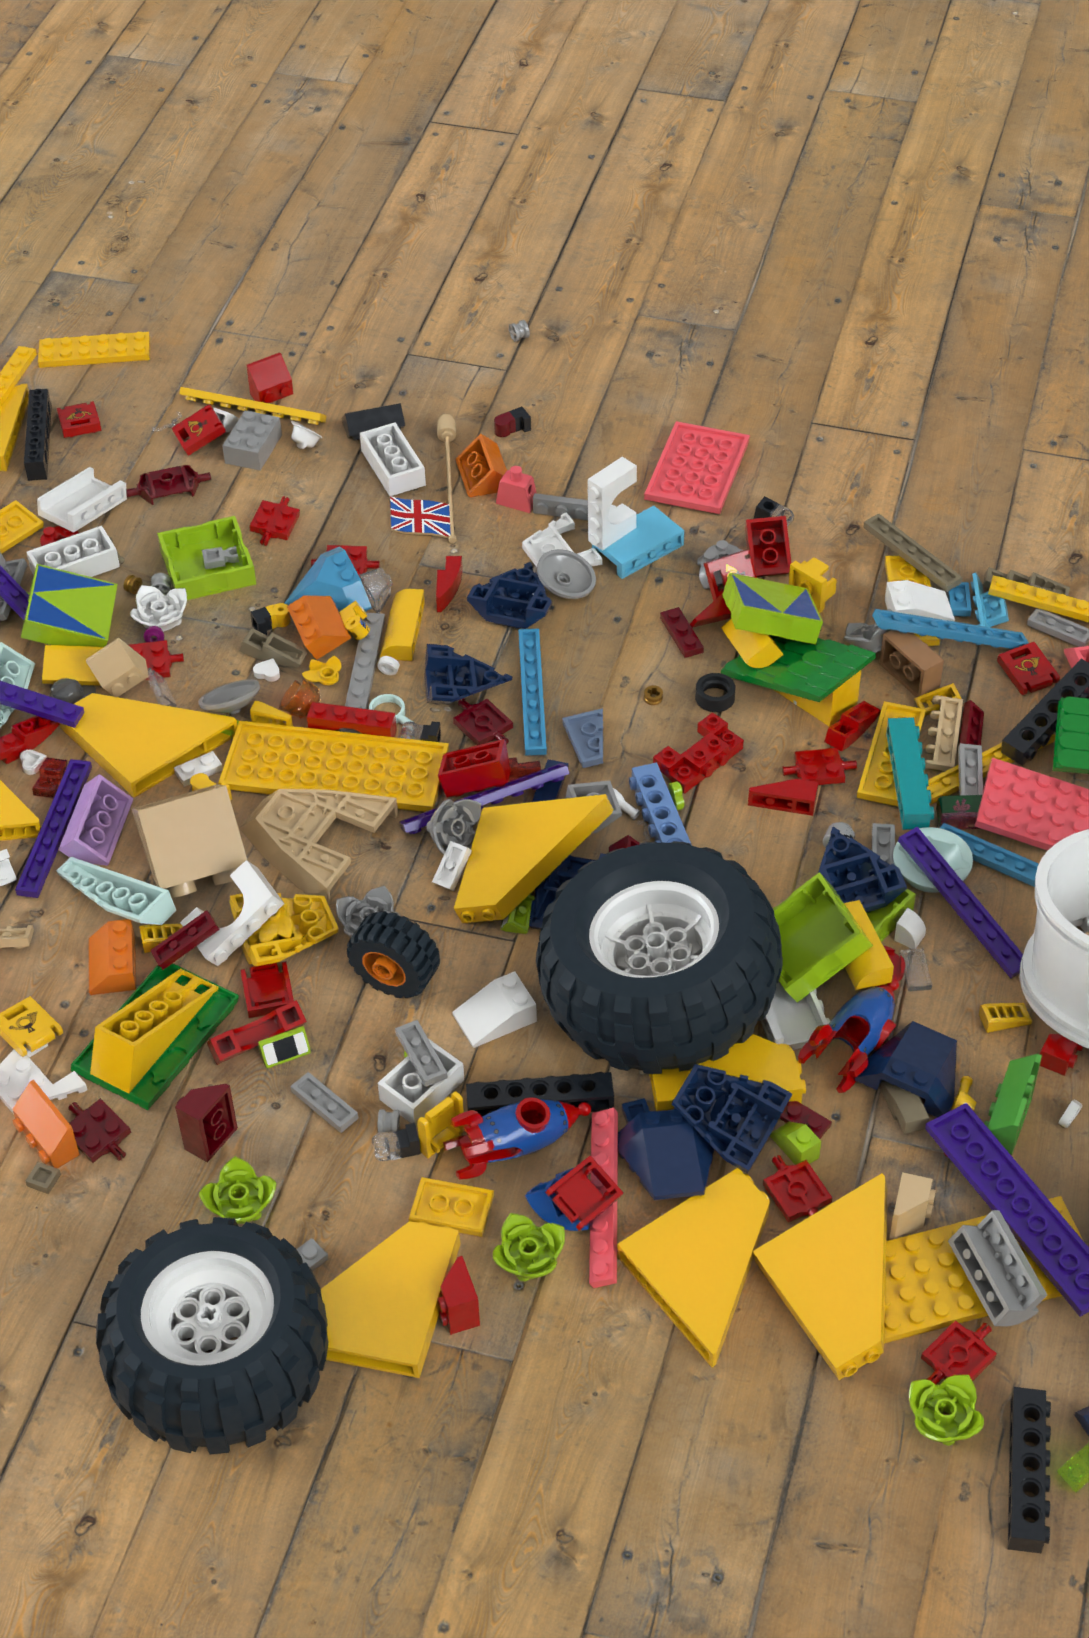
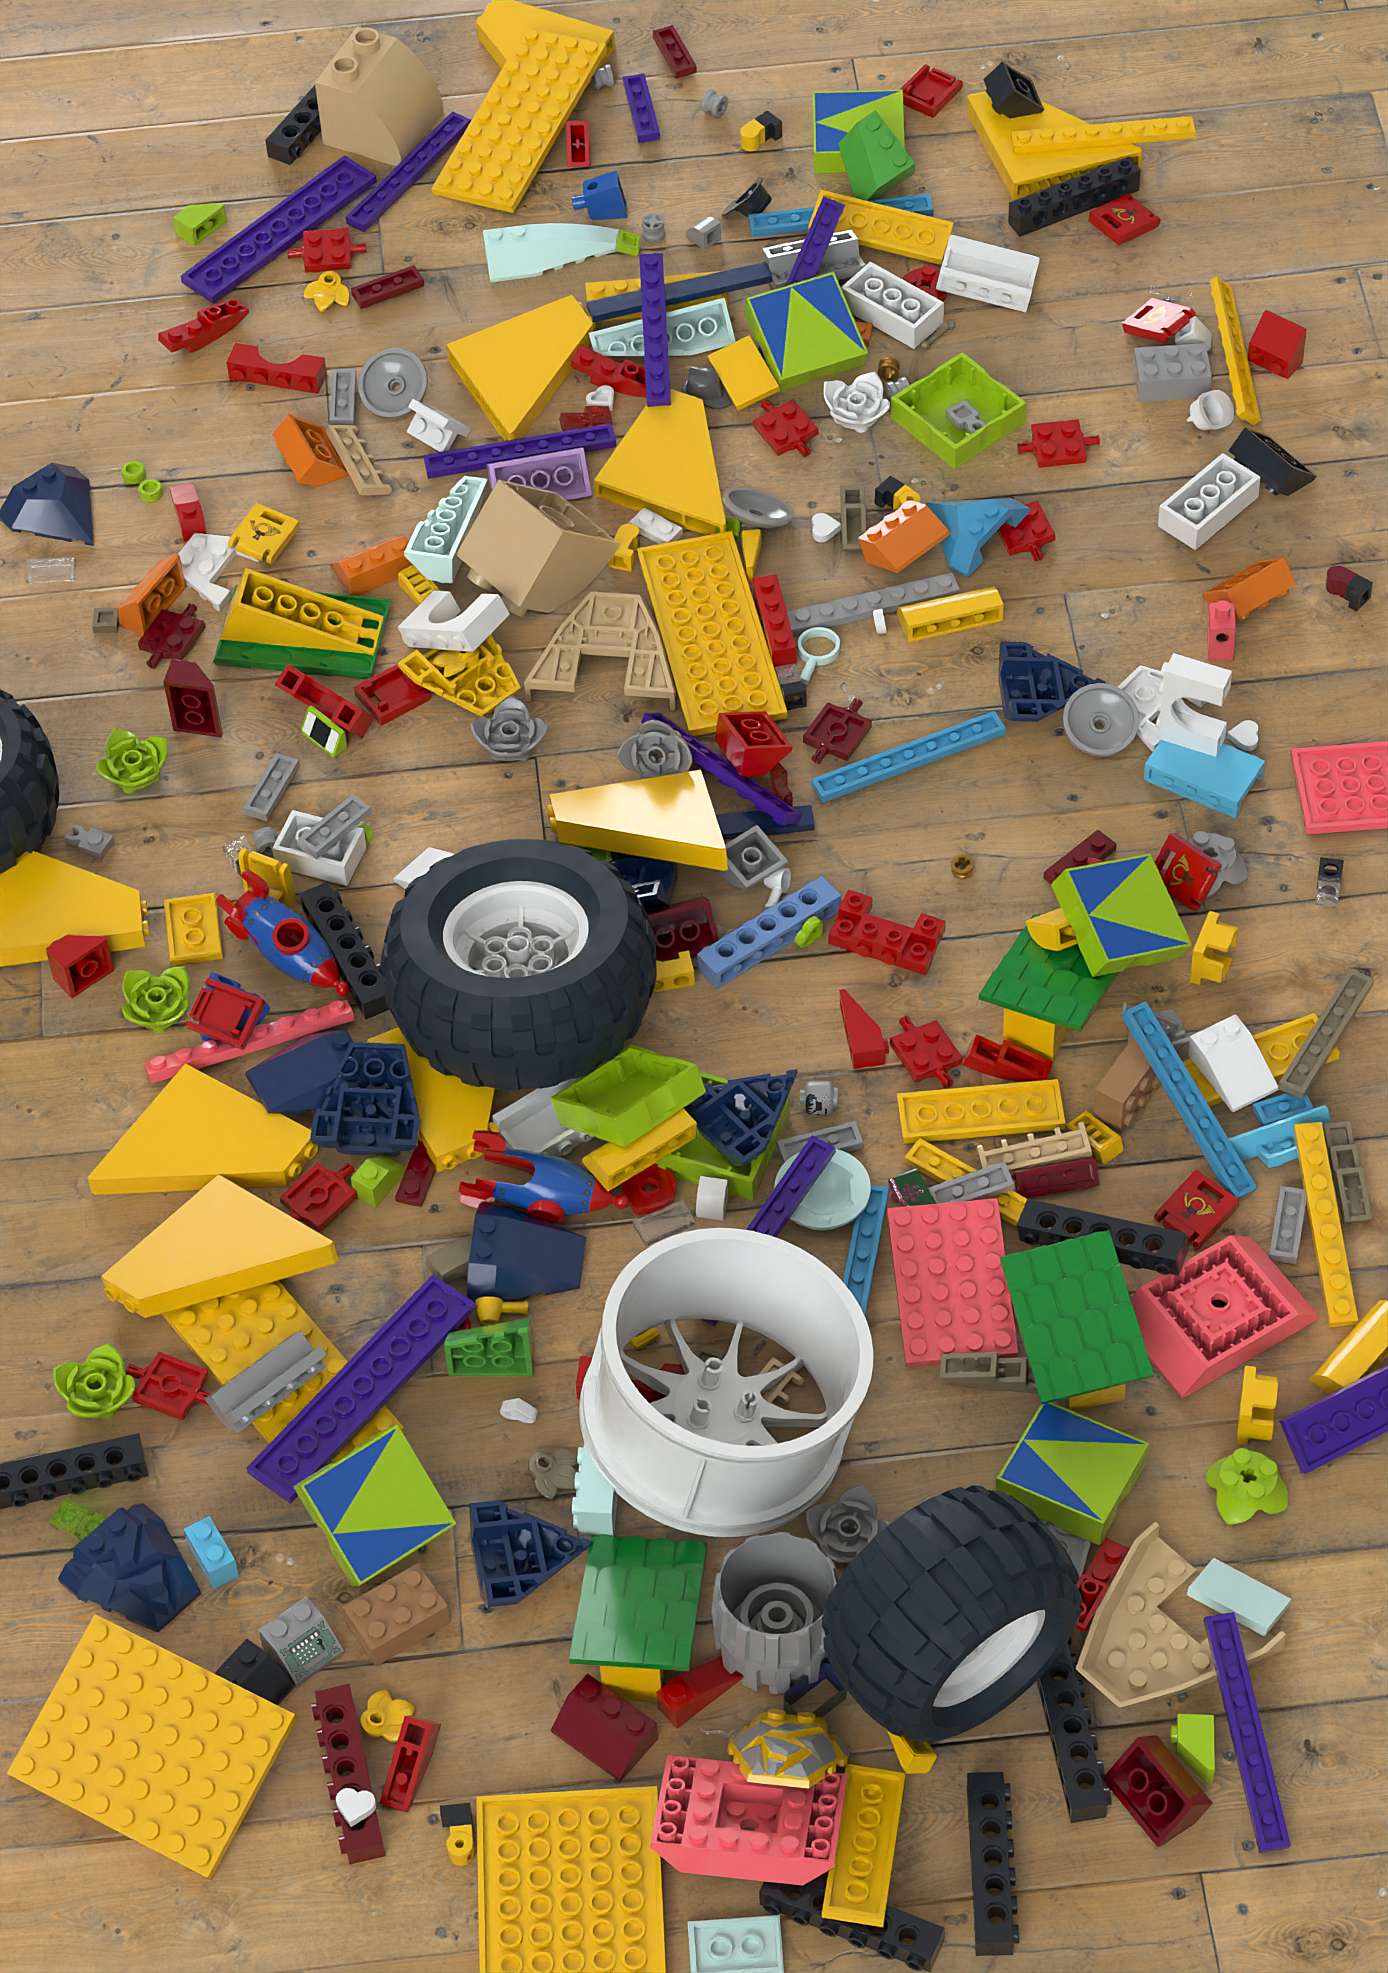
camera: 70 degrees right, 5 degrees up
(94, 349) = (1252, 184): yellow plate -> none
(118, 667) = (742, 403): tan slope -> none
(153, 631) = (821, 416): magenta plate -> none
(154, 485) = (1074, 344): dark red plate -> none
(161, 689) = (747, 453): clear slope -> none
(184, 940) = (405, 599): dark red plate -> none
(299, 698) = (787, 565): clear orange helmet -> none
(322, 672) = (847, 573): yellow plate -> none
(353, 620) = (925, 565): yellow leg -> none
(377, 588) = (992, 568): clear slope -> none
(393, 954) = (449, 761): black wheel -> none
(428, 516) = (1144, 569): flag -> none
(448, 581) = (1037, 624): red slope -> none
(452, 866) = (611, 773): white plate -> none
(456, 676) = (883, 682): dark blue wedge -> none
(558, 505) = (1231, 702): light grey plate -> none
(586, 736) = (863, 826): sand blue wing -> none
(633, 1108) = (361, 1031): dark blue plate -> none
(715, 704) = (992, 935): black tyre -> none
(768, 545) = (1265, 895): red slope -> none
(909, 773) = (938, 1127): teal brick -> none
(912, 1205) = (322, 1289): tan slope -> none

